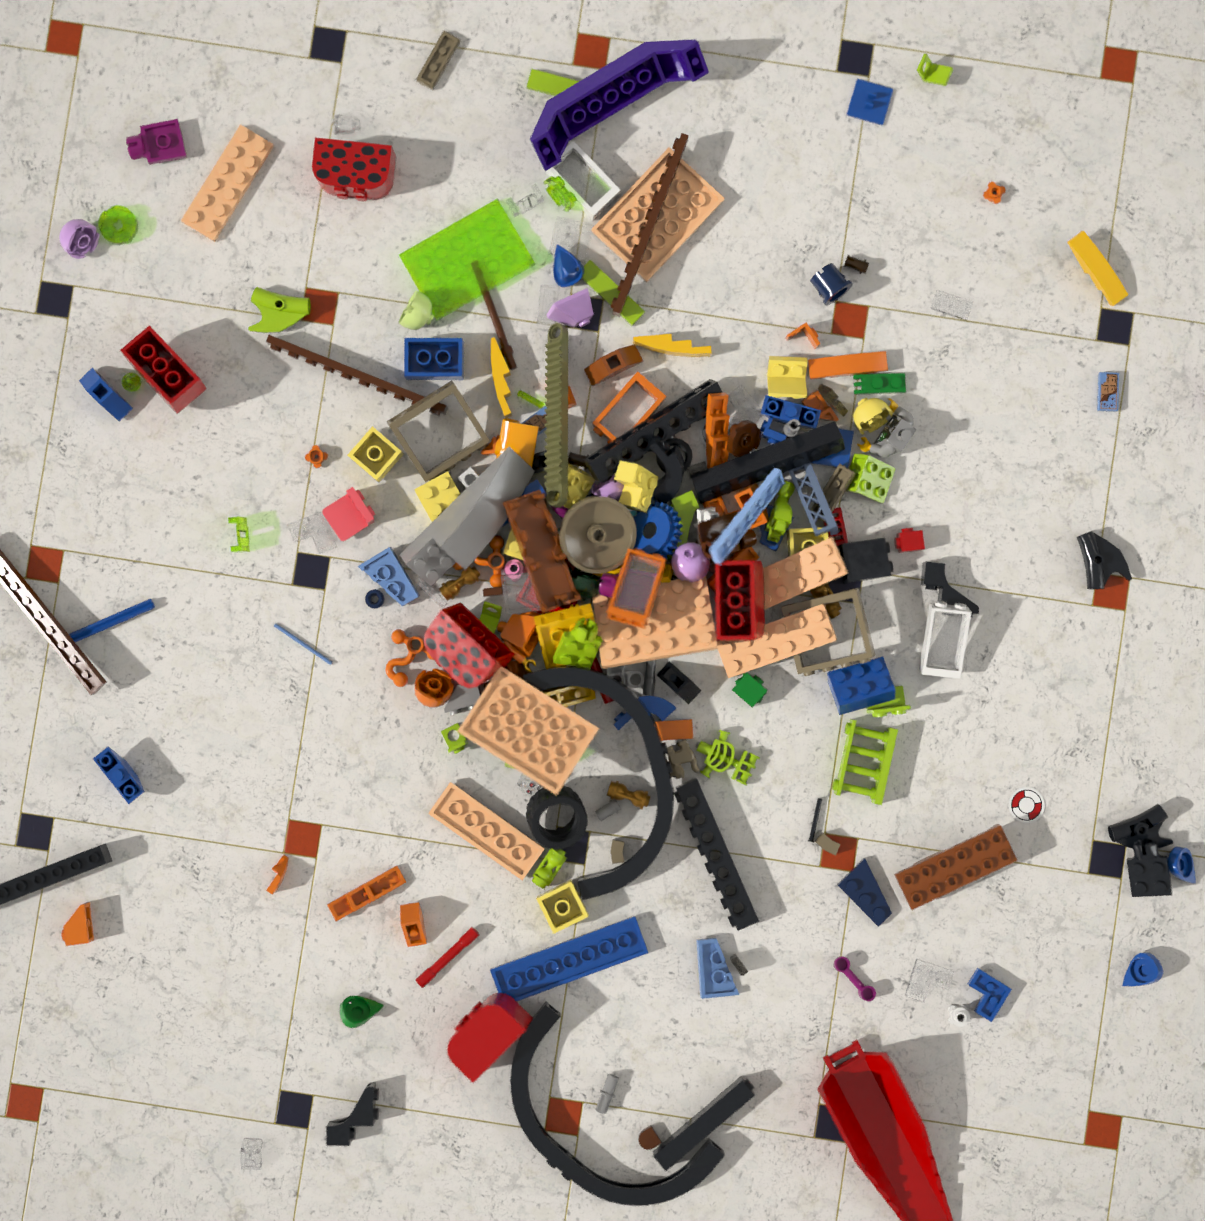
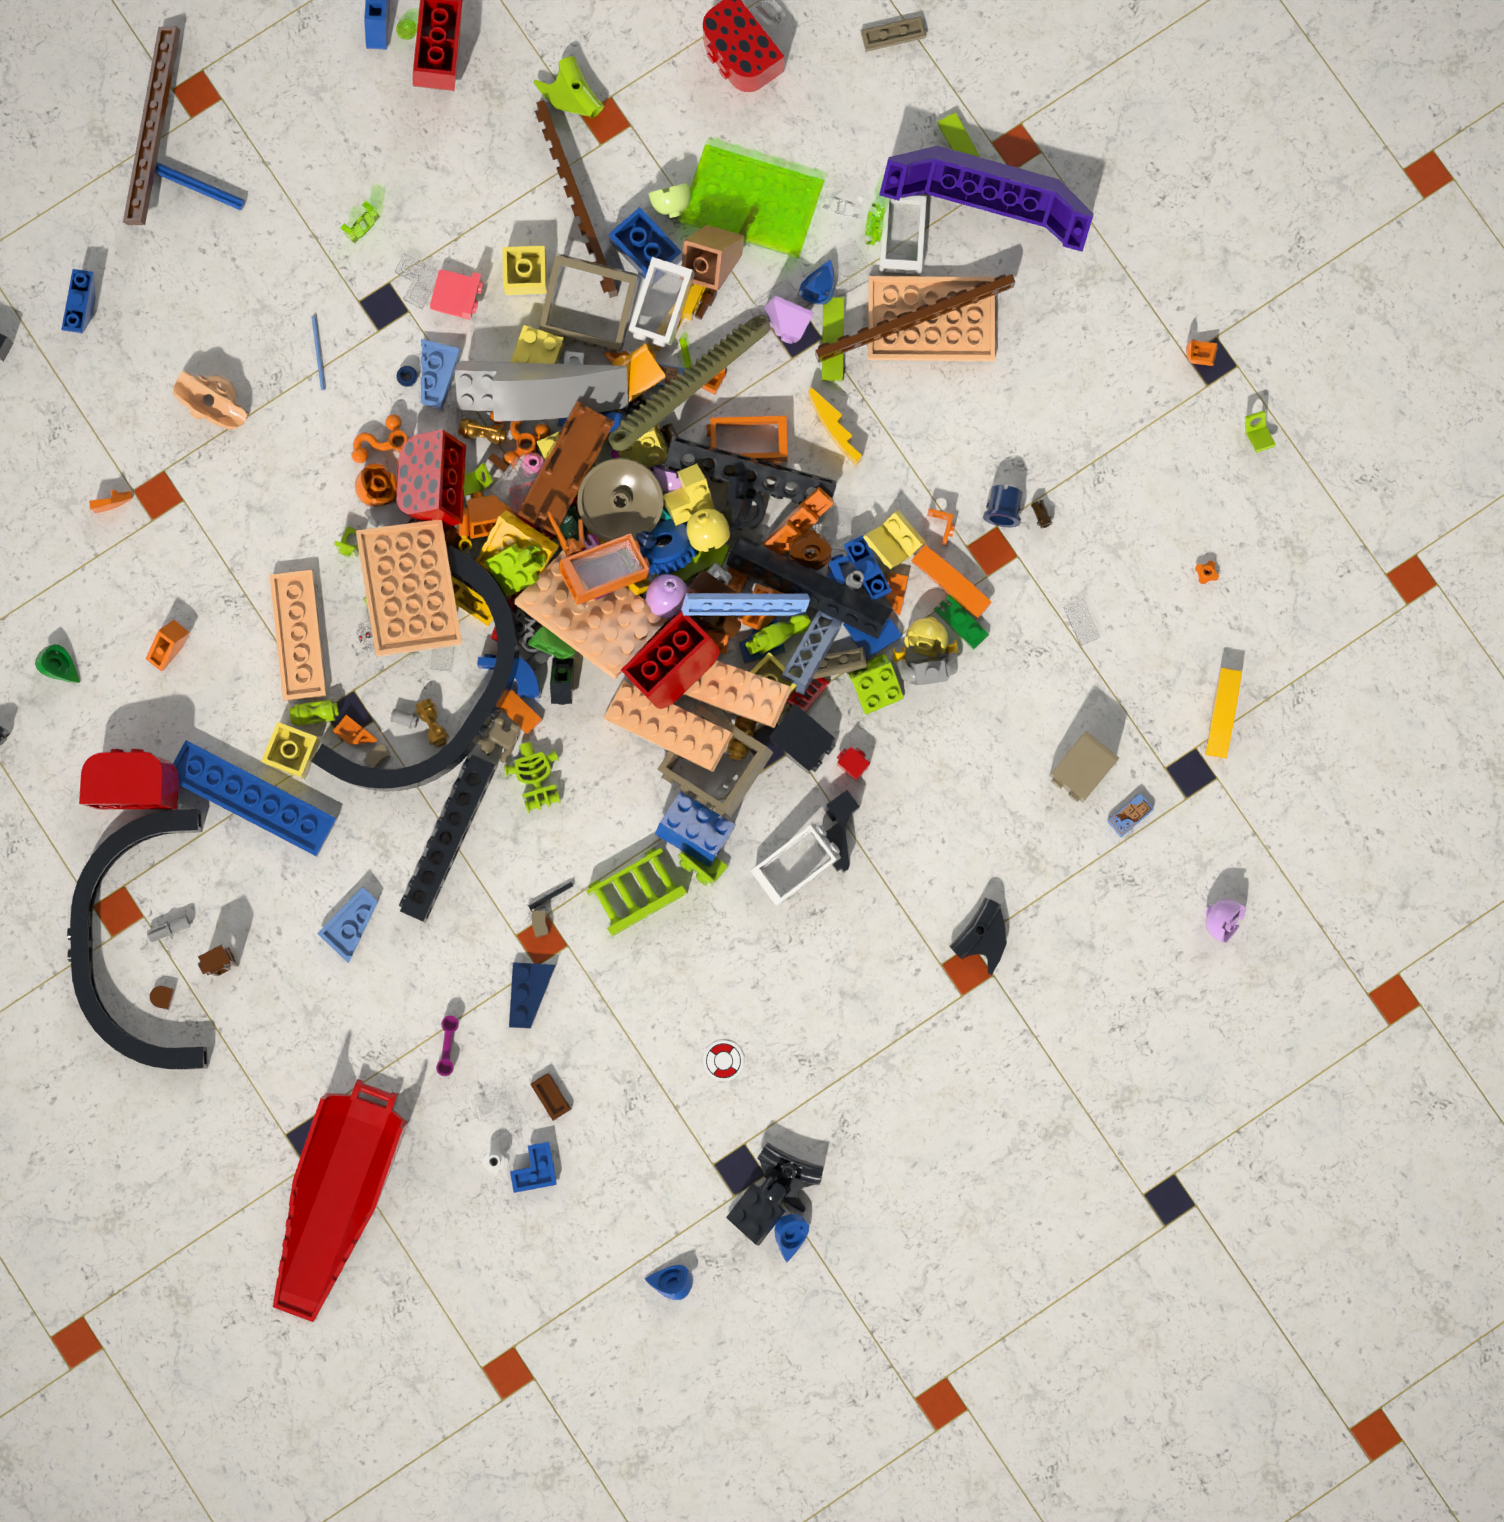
camera: 50 degrees right, 5 degrees down
(285, 742) = (223, 413): none -> light nougat piece
(311, 456) = (476, 222): orange plate -> none
(366, 893) = (159, 585): orange slope -> none
(464, 941) = (140, 695): red piece -> none
(483, 321) = (712, 255): none -> nougat slope
(485, 383) = (661, 302): none -> window
(562, 837) = (342, 695): black tyre -> none
(586, 853) = (353, 732): none -> orange slope
(601, 596) = (570, 545): none -> orange plant
(613, 364) = (775, 392): dark orange slope -> none
(640, 541) = (646, 539): none -> dark blue plate
(647, 669) = (551, 644): none -> bright green slope
(661, 1082) = (217, 961): none -> reddish brown window
(673, 494) = (707, 529): none -> light yellow cylinder
(704, 1123) = (215, 1029): black brick -> none
(738, 964) = (372, 939): clear smoke tile -> none
(750, 689) = (609, 743): green head -> none
(831, 398) = (911, 593): clear smoke slope -> none
(845, 59) = (1201, 352): none -> orange plate
(869, 102) = (1186, 405): blue piece -> none
(948, 940) = (550, 1096): none -> reddish brown tile
(955, 867) = (614, 1041): dark orange piece -> none
(1051, 392) = (1083, 767): none -> dark tan slope

